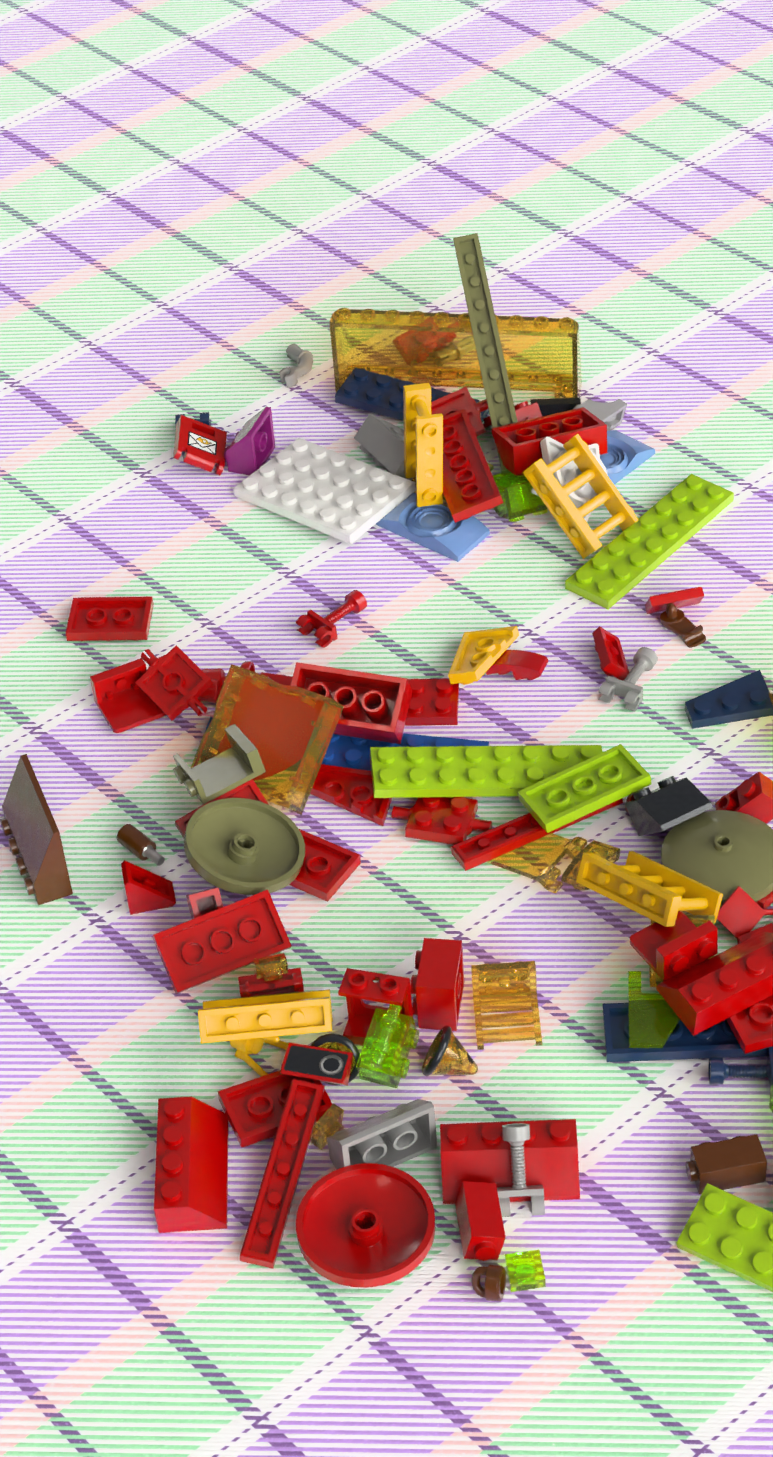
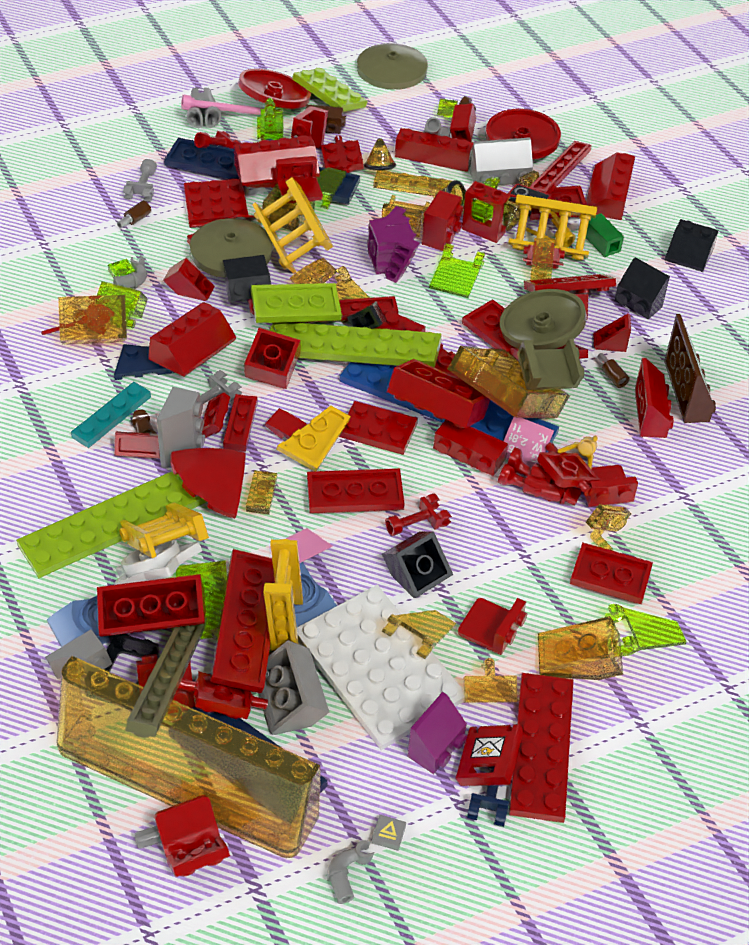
camera: 170 degrees left, 5 degrees up
(42, 1083) = (691, 245): none -> black slope
(68, 582) = (647, 629): none -> clear neon green flag
(81, 802) = (652, 401): none -> red slope
(113, 961) = (642, 288): none -> black slope
(120, 646) = (606, 518): none -> clear yellow plate
(129, 542) = (581, 651): none -> clear yellow slope
(155, 479) = (543, 754): none -> red plate
(156, 730) = (585, 447): none -> yellow plant
(187, 1058) = (604, 235): none -> green brick
(218, 495) = (490, 687): none -> clear yellow plate
(221, 545) = (492, 624): none -> red bracket
(272, 394) = (389, 832): none -> light grey tile
(290, 515) = (427, 625): none -> clear yellow flag
(320, 572) = (418, 563): none -> black slope
(392, 934) = (456, 275): none -> clear neon green flag
(412, 623) = (355, 490): none -> red plate
(444, 559) = (309, 544): none -> bright pink sticker
(478, 793) = (368, 317): none -> black slope
(501, 912) = (391, 244): none -> magenta slope
(512, 596) = (261, 492): none -> clear yellow plate
(520, 1083) = (409, 183): none -> clear yellow plate
(574, 583) = (212, 475): none -> red brick
(576, 717) = (272, 358): none -> red brick
(577, 657) = (240, 422): none -> red plate
(588, 1100) = (380, 157): none -> clear yellow hat
(627, 594) = (180, 423): none -> light grey slope
(658, 1100) = (342, 155): none -> red plate
(676, 1369) = (392, 66): none -> olive dish
(689, 716) = (191, 339): none -> red slope
(725, 1109) = (311, 123): none -> red window
(731, 634) = (110, 414): none -> teal plate

